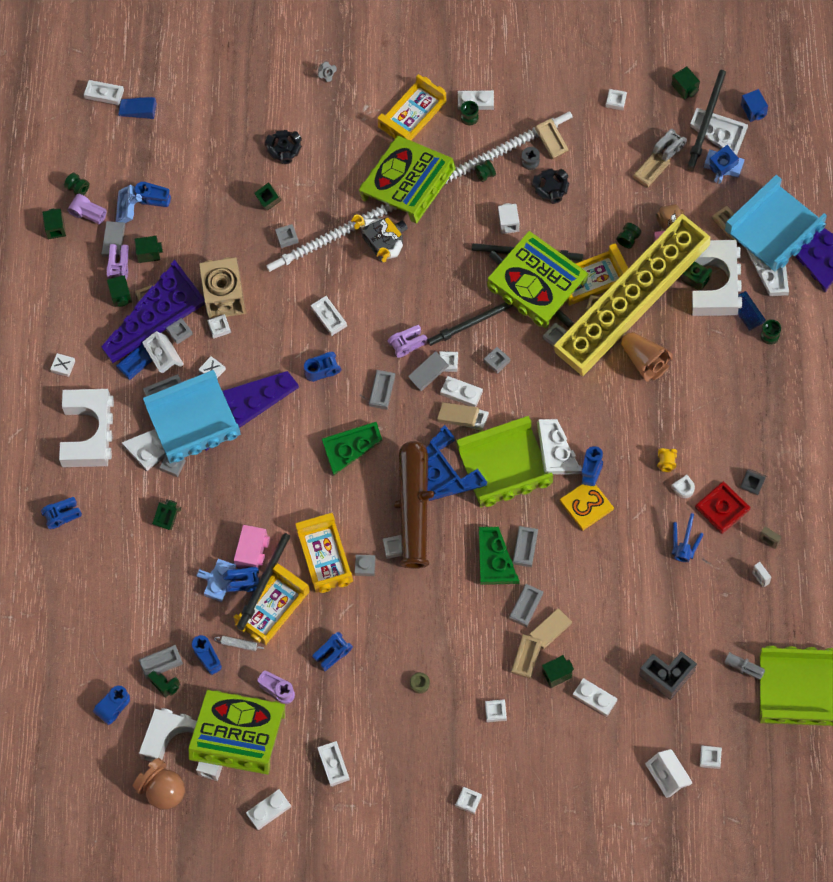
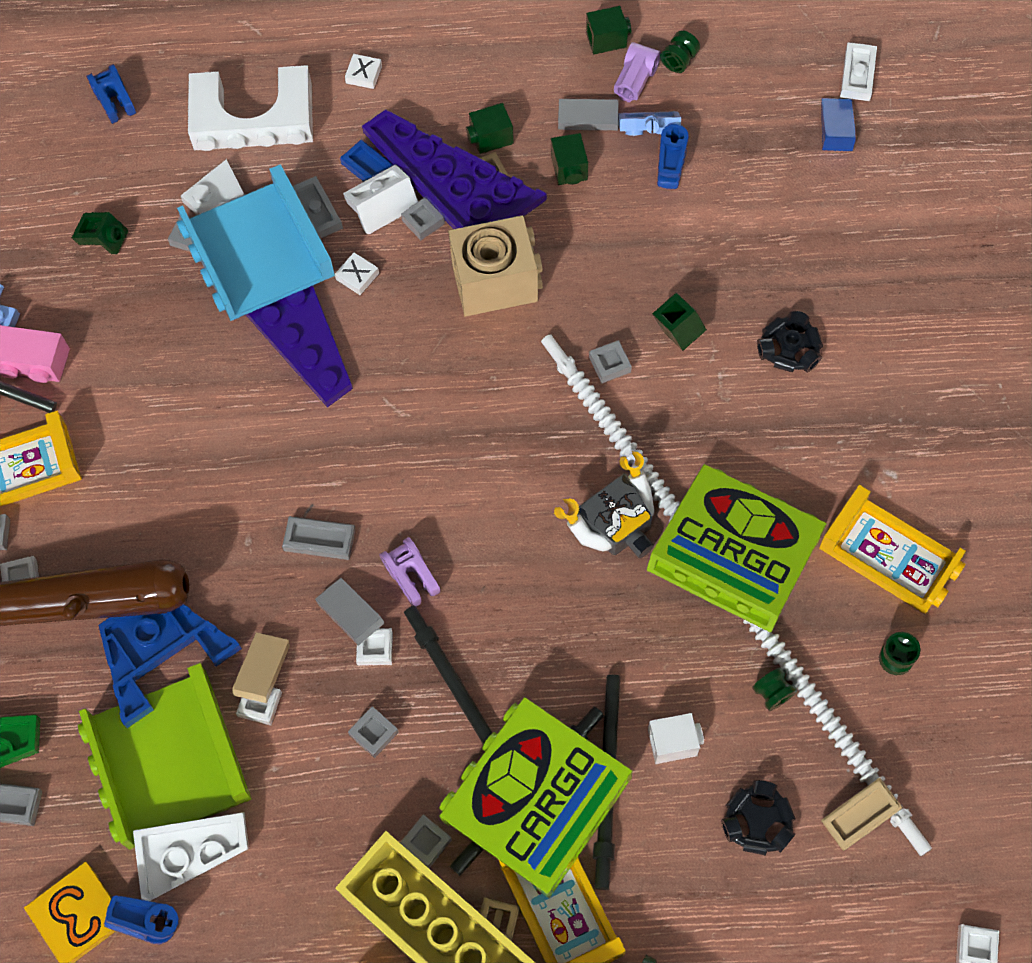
camera: 85 degrees right, 0 degrees up
(117, 269) = (542, 119): lavender piece -> none
(219, 326) = (436, 277): white tile -> none
(322, 71) = (960, 395): light grey plate -> none
(325, 367) = (358, 438): blue piece -> none
(328, 315) = (457, 439): white plate -> none
(350, 445) = (209, 491): green wing -> none
(461, 391) = (313, 673): white plate -> none
(484, 99) = (935, 667): white plate -> none
(532, 162) = (811, 783): dark grey wheel -> none

